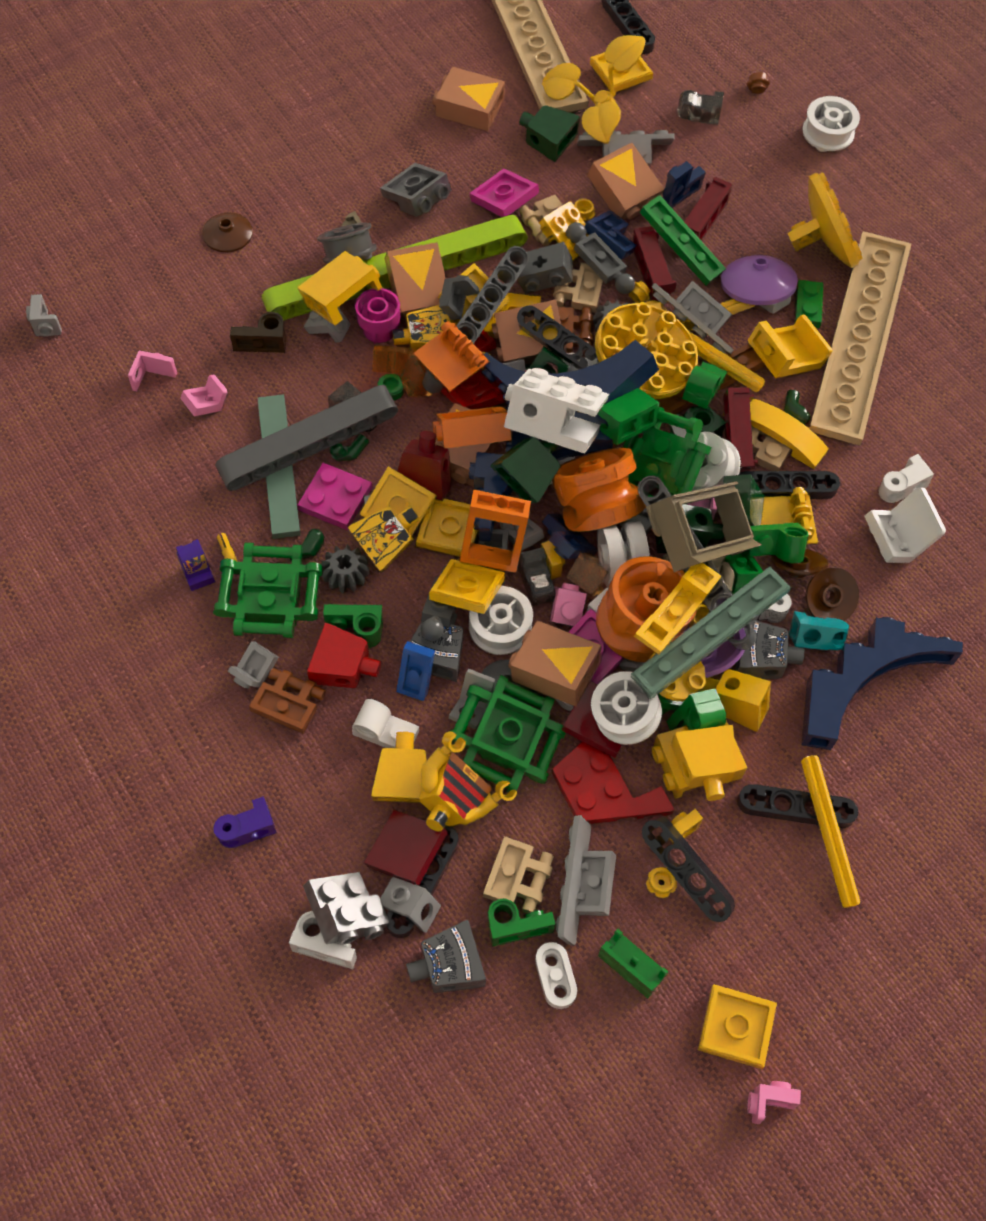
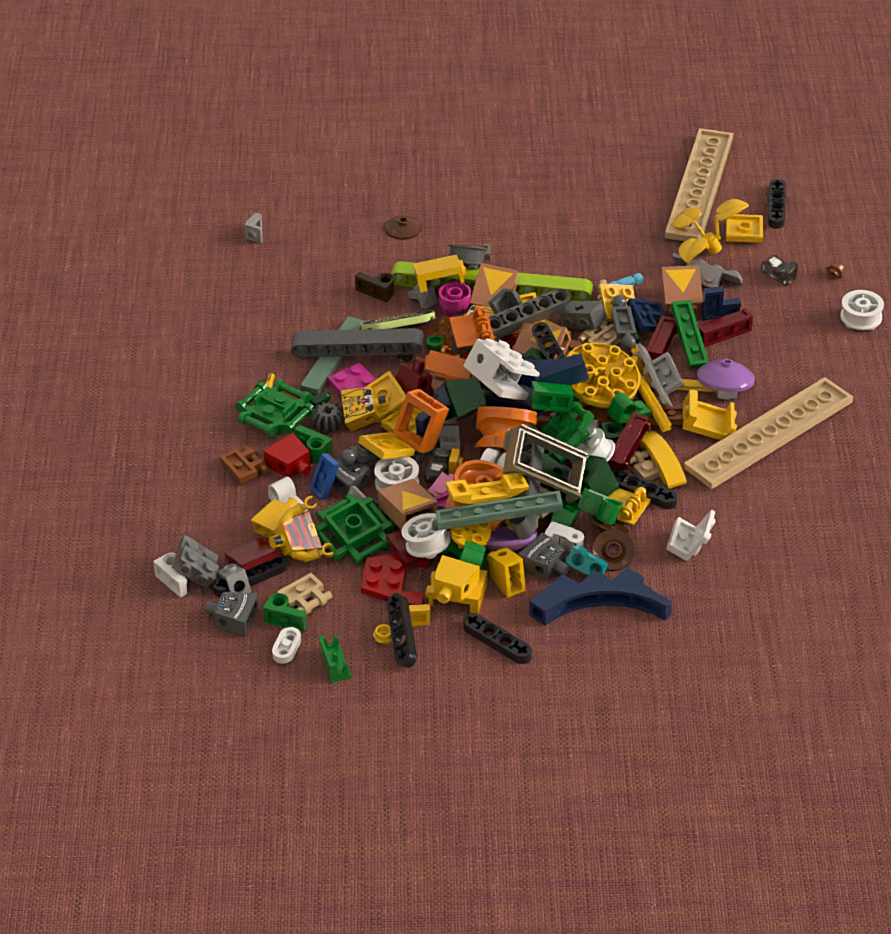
camera: 35 degrees right, 20 degrees down
(151, 363) = (296, 274): bright pink bracket -> none
(194, 565) = (242, 378): dark purple leg -> none
(206, 398) = (316, 305): bright pink bracket -> none
(246, 826) = (174, 508): dark purple leg -> none
(253, 666) = (237, 440): light grey bracket -> none
(328, 377) = (399, 320): none -> yellowish green tile
(350, 452) = (381, 365): dark green arm -> none
(417, 189) = (541, 246): flat silver plate -> none
(469, 98) = (621, 209): nougat brick -> none
(504, 193) = (596, 268): dark pink plate -> none
(550, 130) = (659, 245): dark green torso -> none
(559, 198) = (636, 279): none -> medium azure axle
(566, 542) = (466, 450): dark blue plate -> none
(585, 208) = (643, 294): yellow plate -> none
(586, 882) = (337, 612): light grey bracket -> none
(737, 1026) = (368, 712): yellow plate -> none
(777, 1094) = (357, 746): bright pink bracket -> none
(794, 409) = (683, 452): dark green arm -> none
(809, 301) = (751, 404): green plate -> none
(827, 224) = (792, 356): yellow bracket -> none
(830, 831) = (502, 652): yellow axle -> none
(902, 483) = (726, 516): white leg -> none

